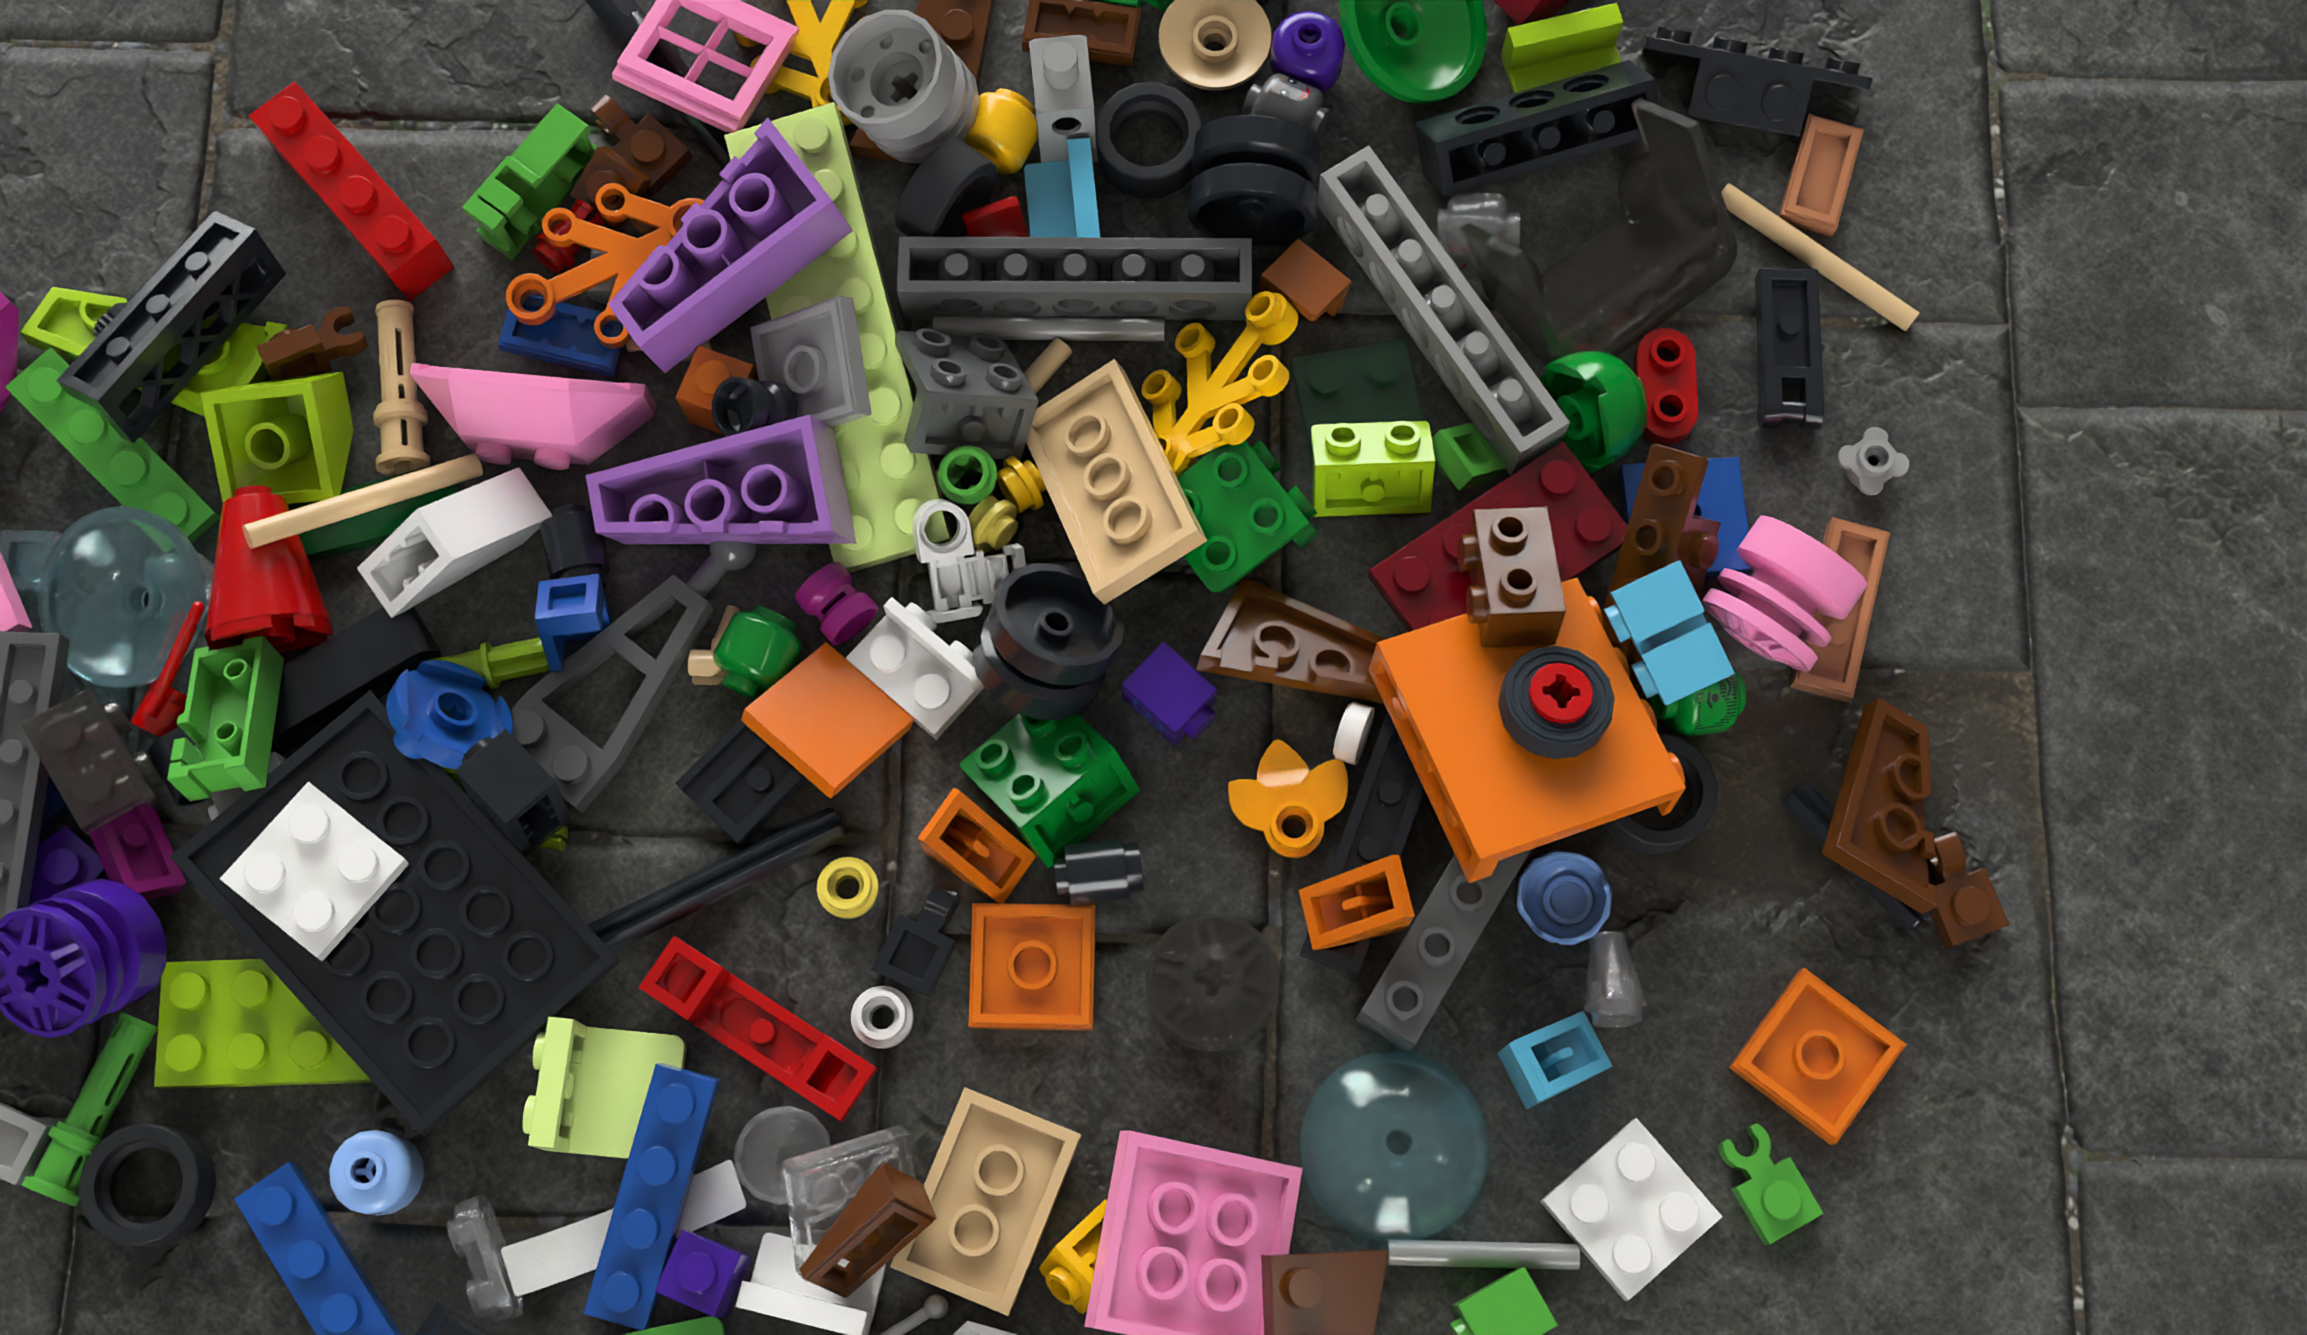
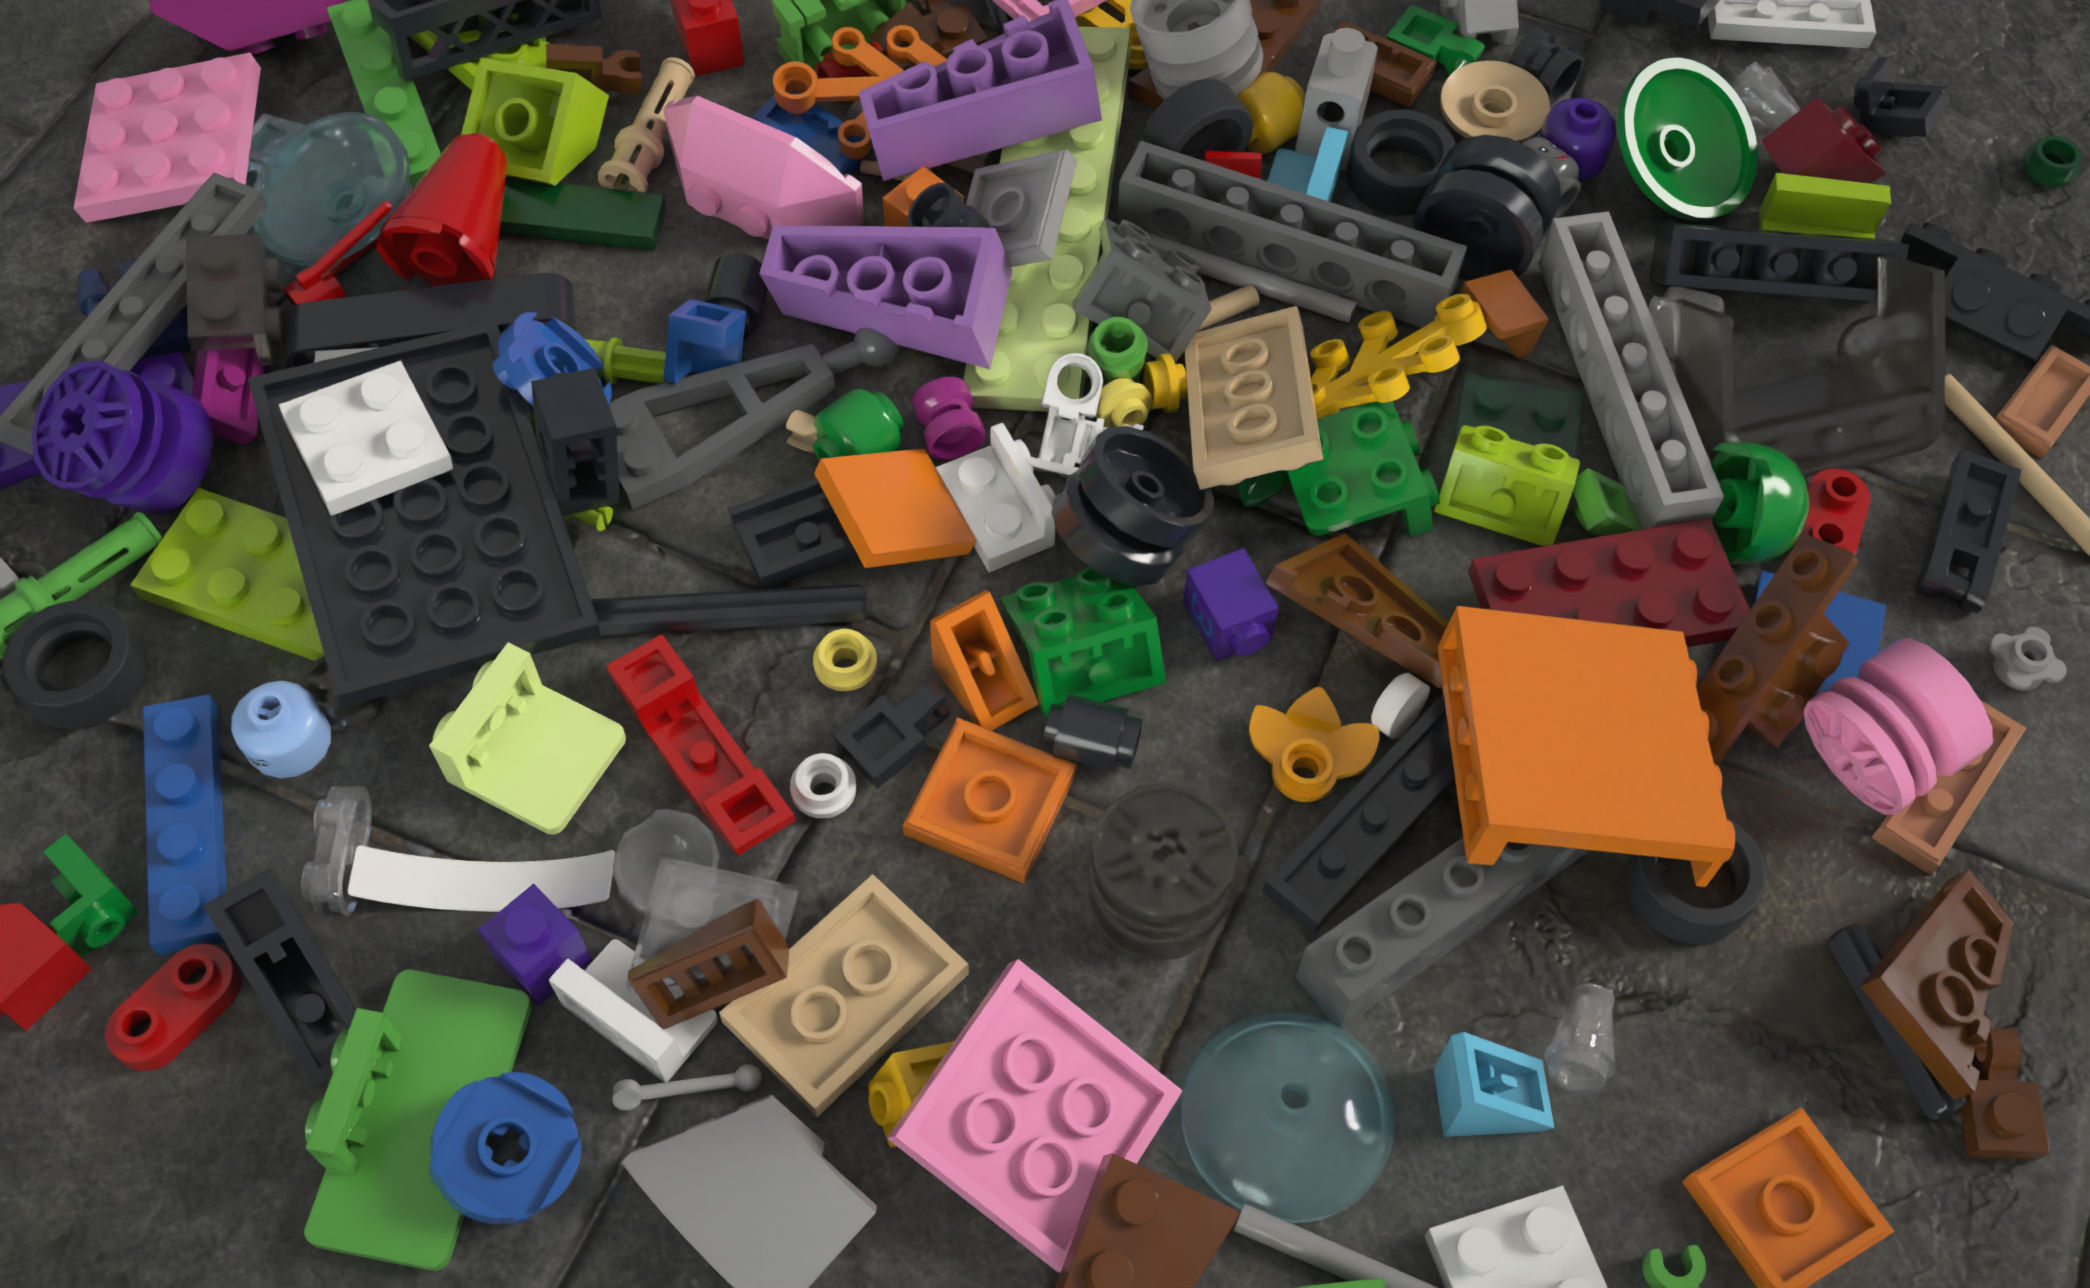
camera: 20 degrees right, 15 degrees down
(229, 718) = (360, 298): bright green piece -> none
(361, 500) = (570, 181): tan bar -> none
(453, 540) = (632, 238): white slope -> none
(652, 1196) = (523, 852): blue plate -> none
(1358, 904) = (1345, 848): orange slope -> none
(1513, 577) = (1617, 596): reddish brown brick -> none
(1541, 720) = (1623, 715): black wheel -> none
(1564, 897) = (1562, 931): medium blue hair -> none
(1669, 633) = (1765, 719): medium azure piece -> none
(1704, 711) = (1773, 799): green head -> none

